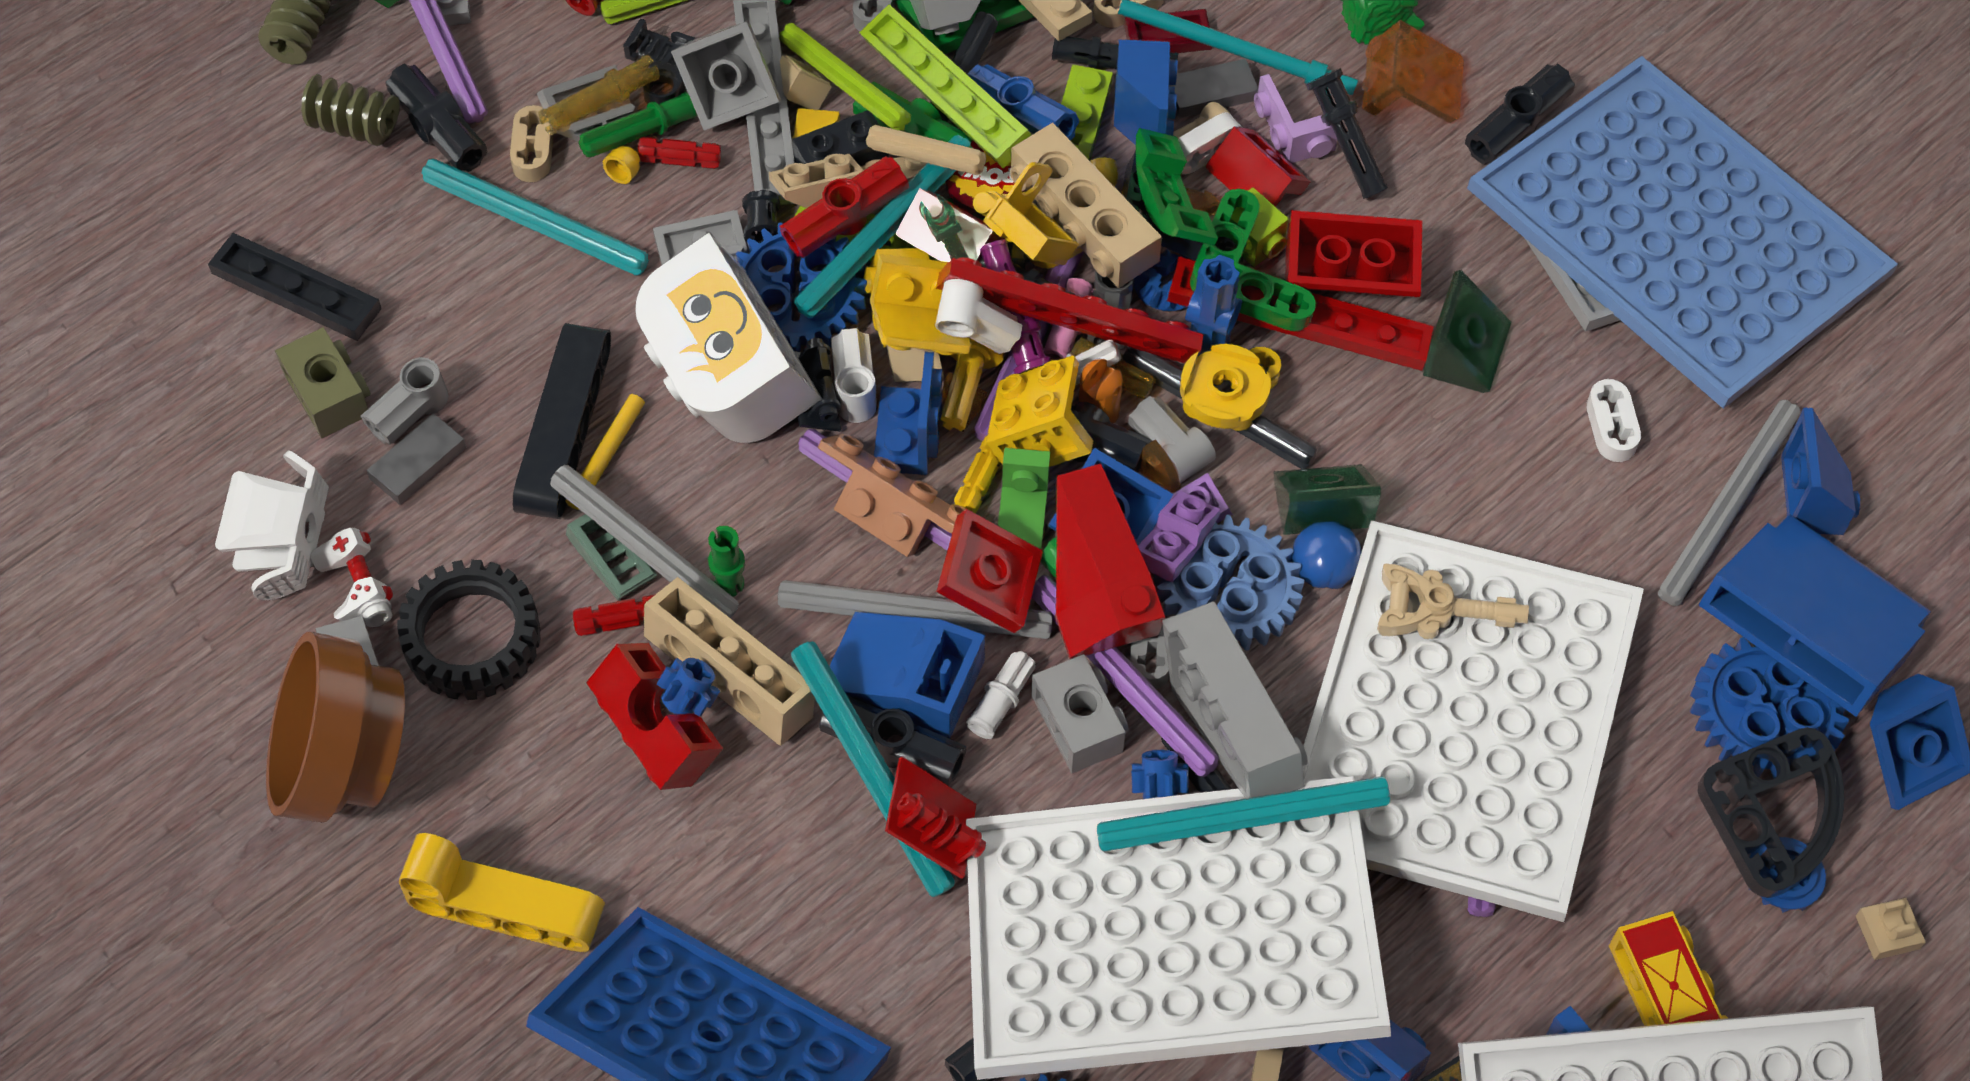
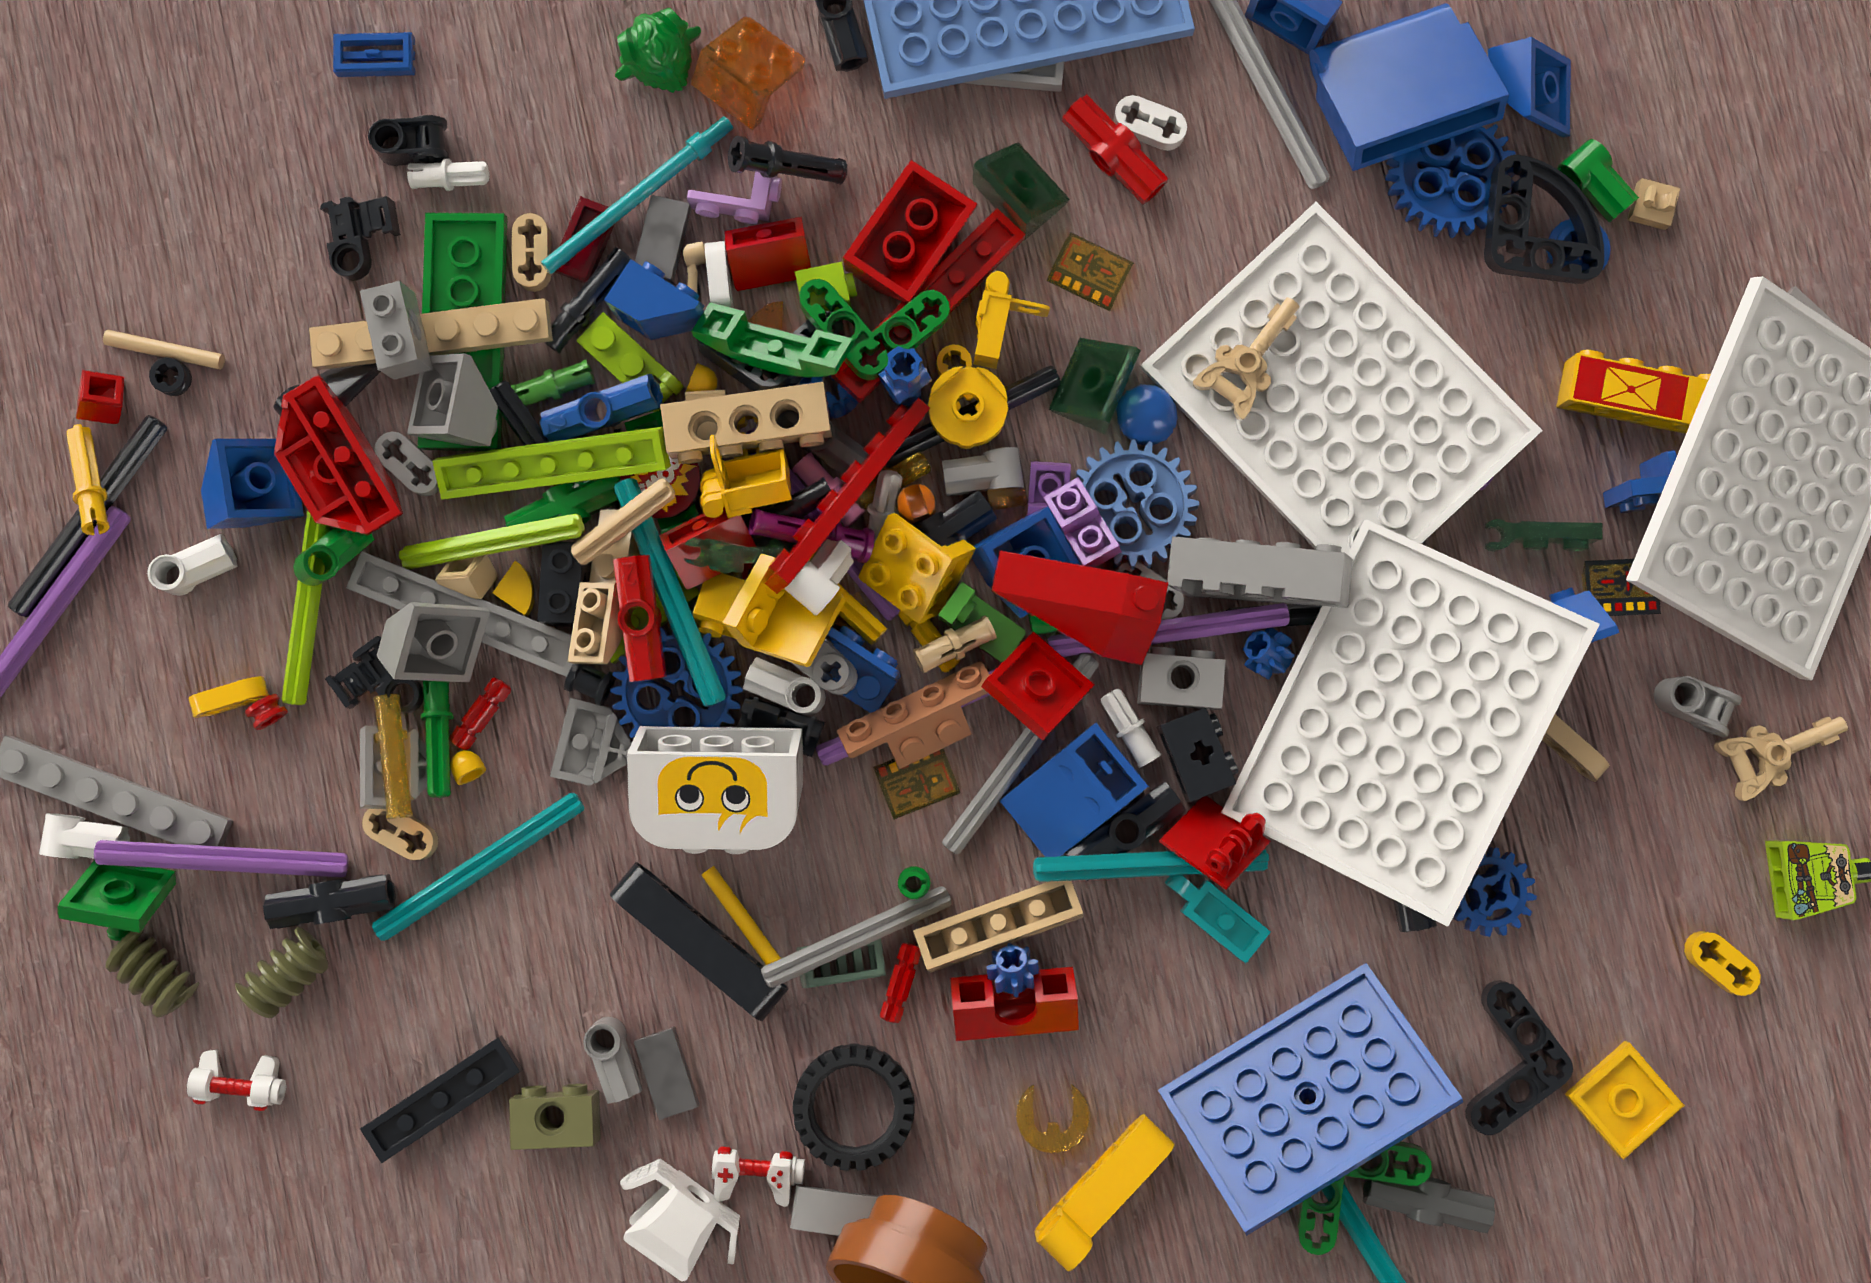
camera: 55 degrees left, 25 degrees up
(230, 146) = (261, 1090): none -> white piece
(531, 834) = (1052, 1139): none -> clear yellow head
(829, 537) = (917, 783): none -> clear yellow piece
(855, 873) = (1220, 917): none -> teal plate
(896, 383) = (825, 660): none -> light grey piece
(960, 472) = (954, 644): none -> tan pin
(1017, 742) = (1193, 777): none -> black brick
(1021, 64) = (554, 383): none -> bright green pin
(1243, 813) = (1354, 618): teal axle -> none
(1325, 373) = (993, 316): none -> yellow piece
(1433, 442) = (1089, 271): none -> clear yellow piece
(1460, 984) = (1537, 535): none -> clear green plate
(1563, 399) = (1114, 149): none -> red piece
(1872, 845) = (1593, 173): none -> green piece

